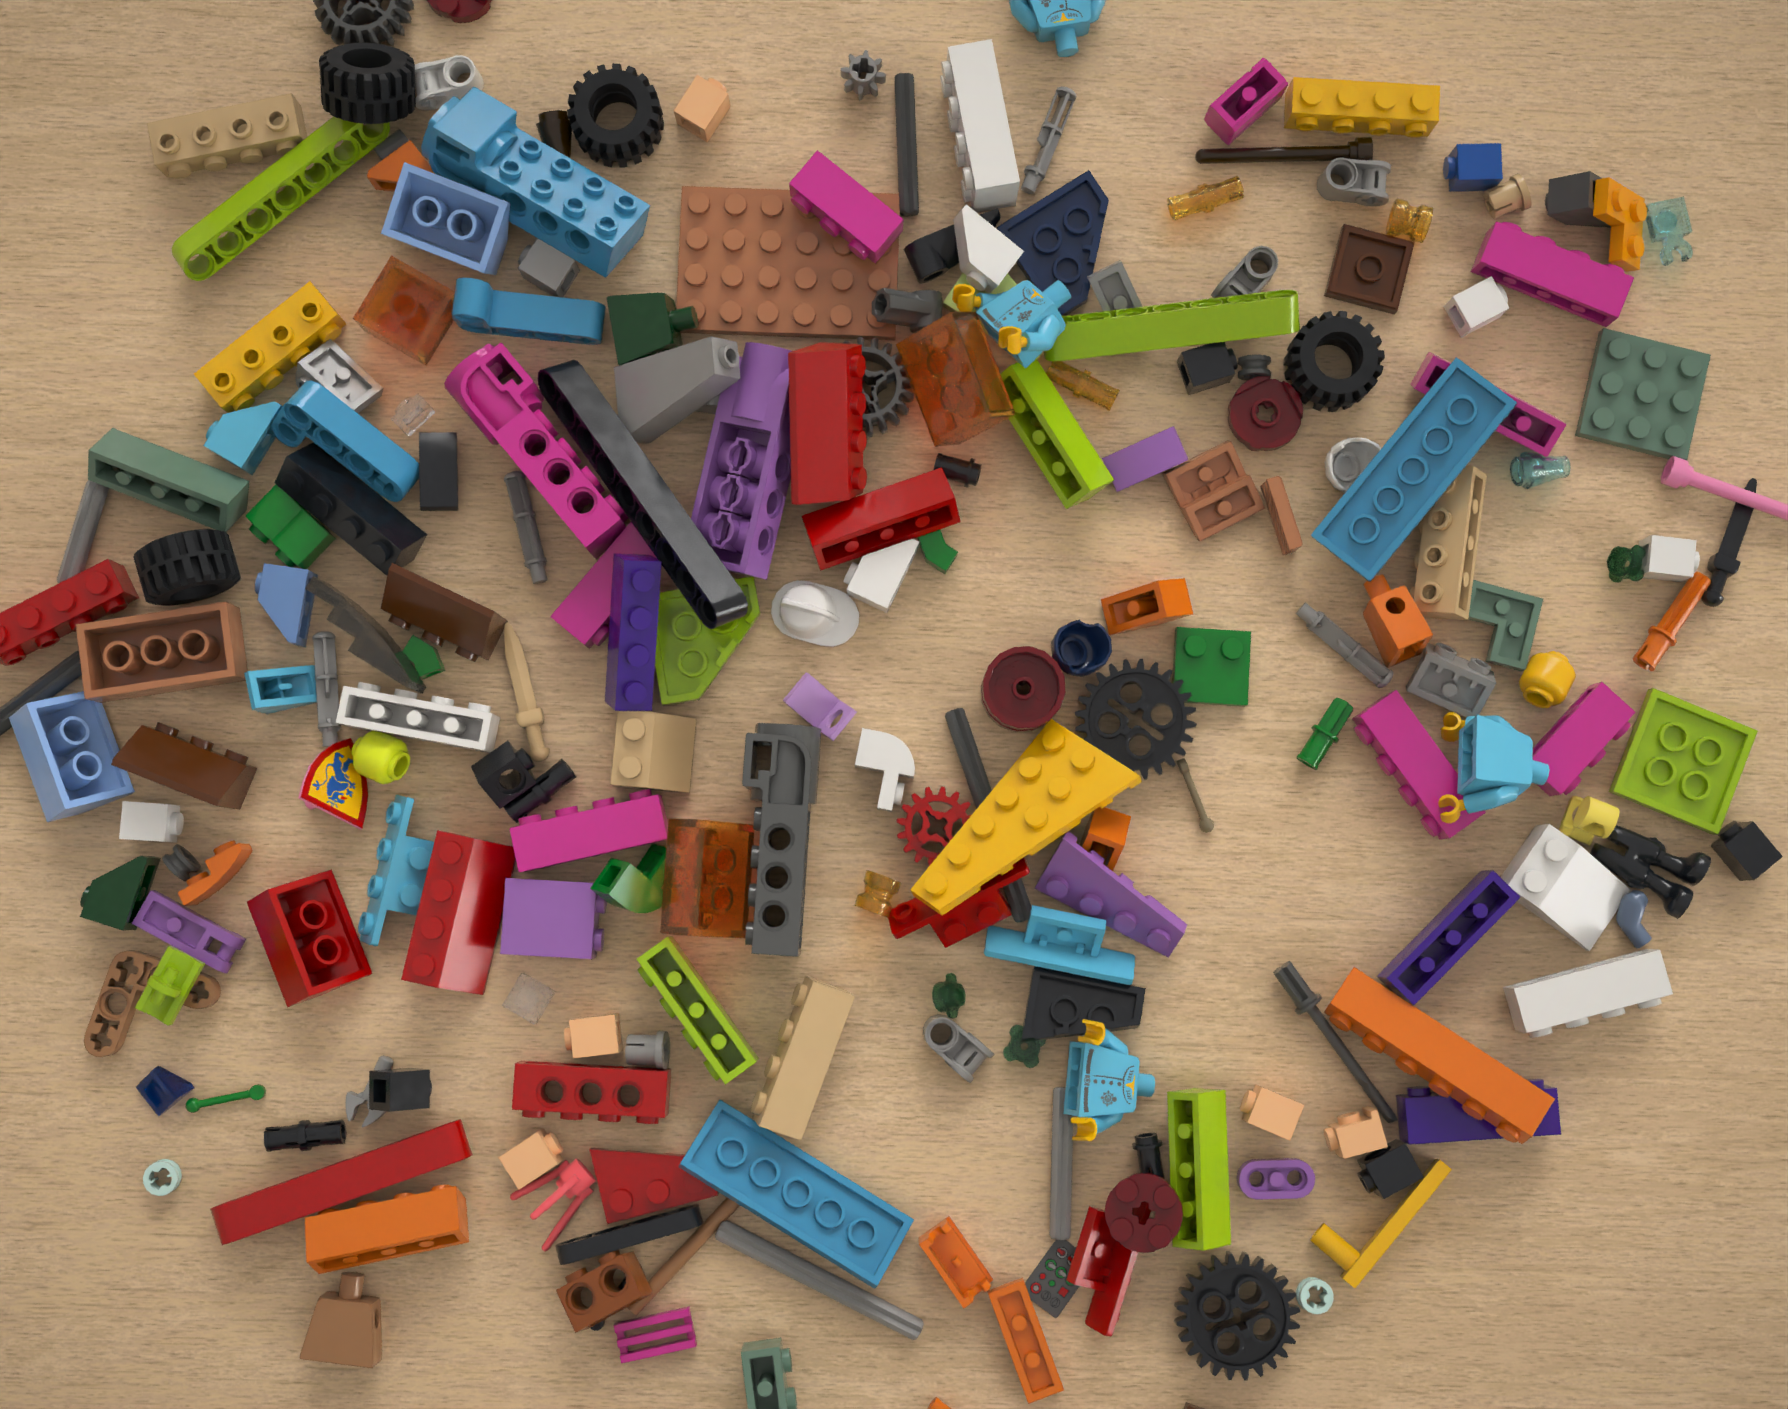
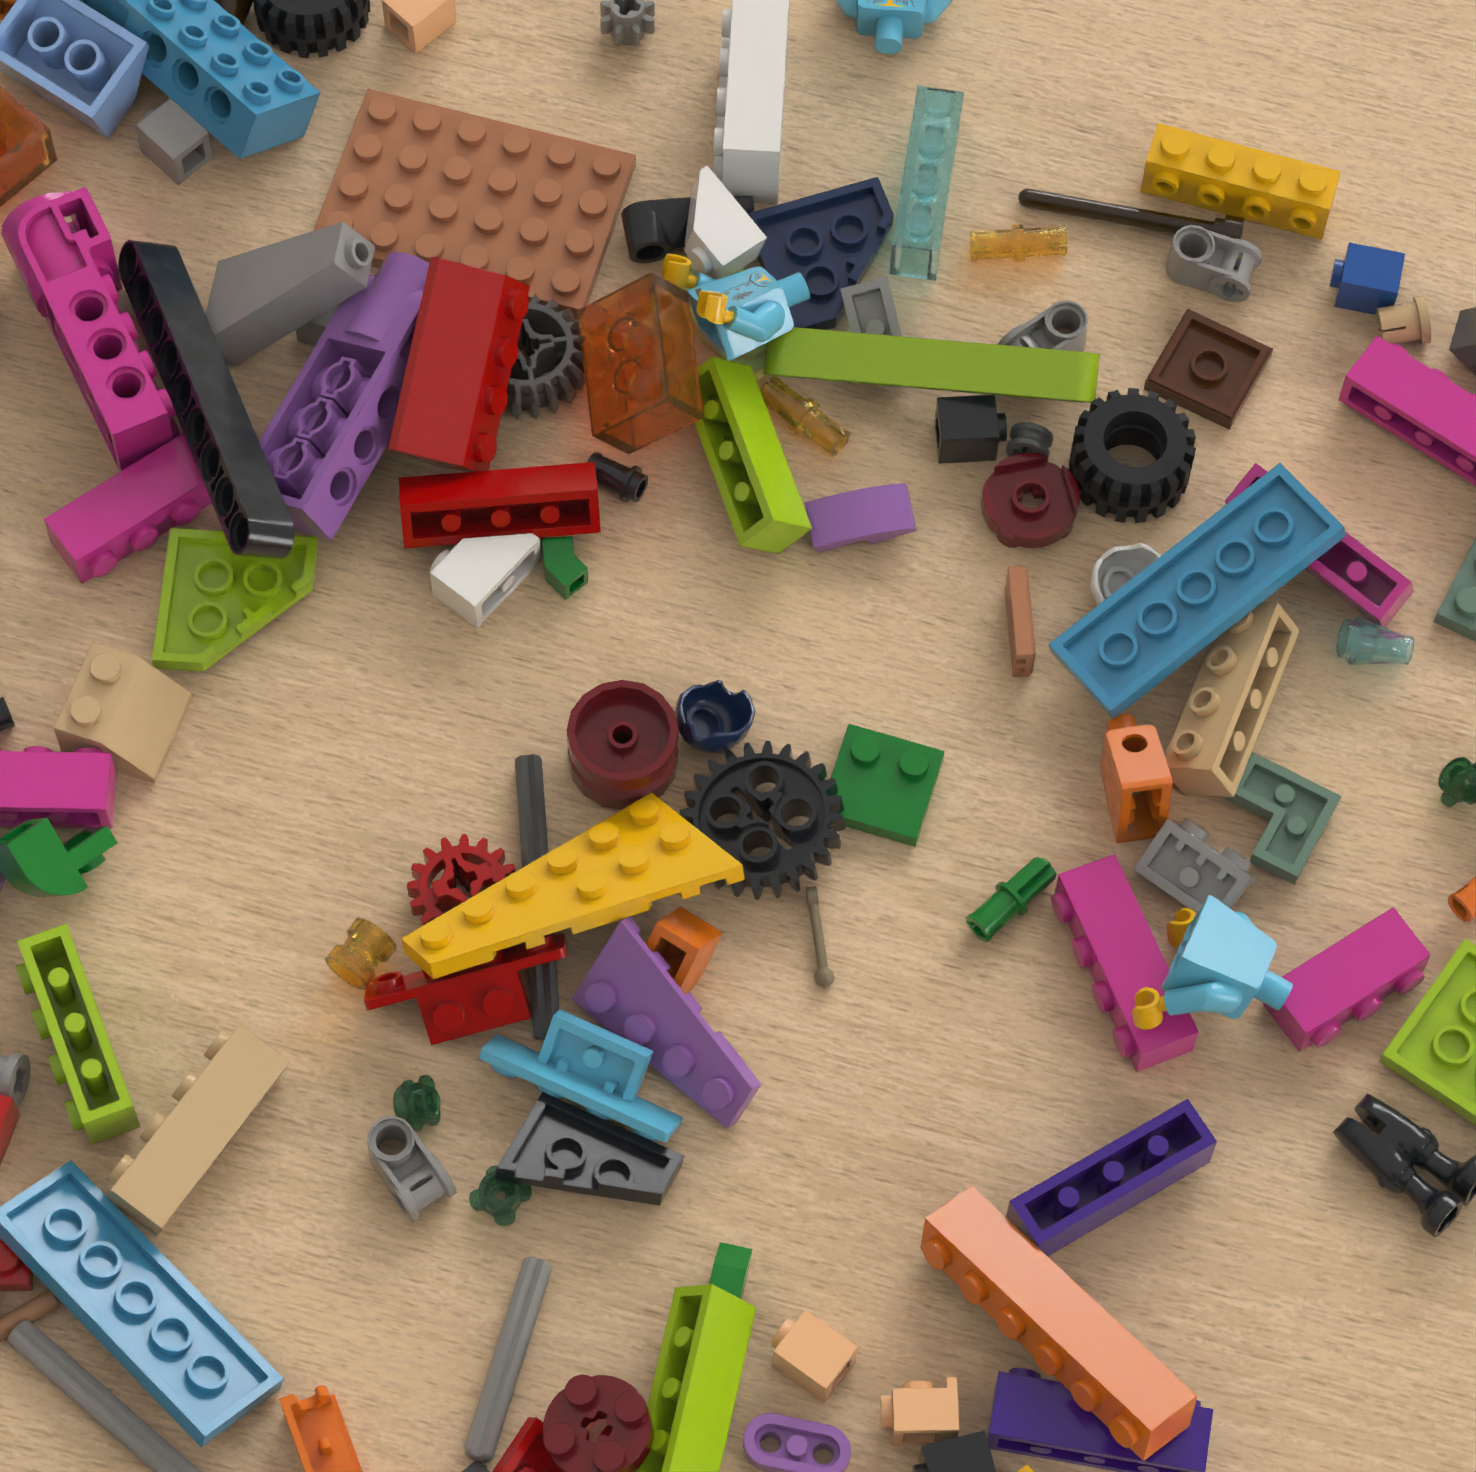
camera: 15 degrees right, 20 degrees down
(524, 315) = (127, 183): dark azure beam -> none
(526, 525) = (50, 420): light grey piece -> none
(632, 632) = (142, 553): dark purple brick -> none
(647, 324) = (269, 214): dark green torso -> none
(707, 878) = (142, 870): clear orange brick -> none
(786, 805) = (276, 779): dark grey brick -> none
(815, 613) = (384, 605): white piece -> none
(818, 706) = (350, 706): lavender bracket -> none
(845, 208) = (560, 146): dark pink brick -> none
(888, 755) = (423, 790): white brick -> none
(906, 144) = (659, 105): dark grey axle -> none
(907, 308) = (597, 271): dark grey piece -> none
(1048, 139) = (838, 137): light grey piece -> none
(1102, 1081) = (592, 1249): medium azure torso -> none
(1127, 165) = (926, 183): none -> clear light blue brick
(1147, 606) = (816, 687): orange slope -> none
(1149, 1153) = (631, 1364): black pin -> none
(1199, 1068) = (731, 1268): none -> green piece
(1213, 490) = (940, 576): nougat slope -> none
(1245, 101) = (1094, 142): dark pink brick -> none
(1305, 1001) = (899, 1226): dark grey piece -> none
(1345, 646) = (1065, 798): light grey piece -> none
(1409, 220) = (1261, 315): clear yellow wheel -> none
(1477, 306) = (1335, 436): white brick -> none
(1547, 679) = (1324, 896): yellow head -> none
(1564, 885) = (1291, 1162): white slope -> none
(1588, 991) = (1288, 1299): white brick -> none
(1590, 819) = (1339, 1075): light yellow leg -> none
(1630, 916) = (1371, 1226): sand blue arm -> none

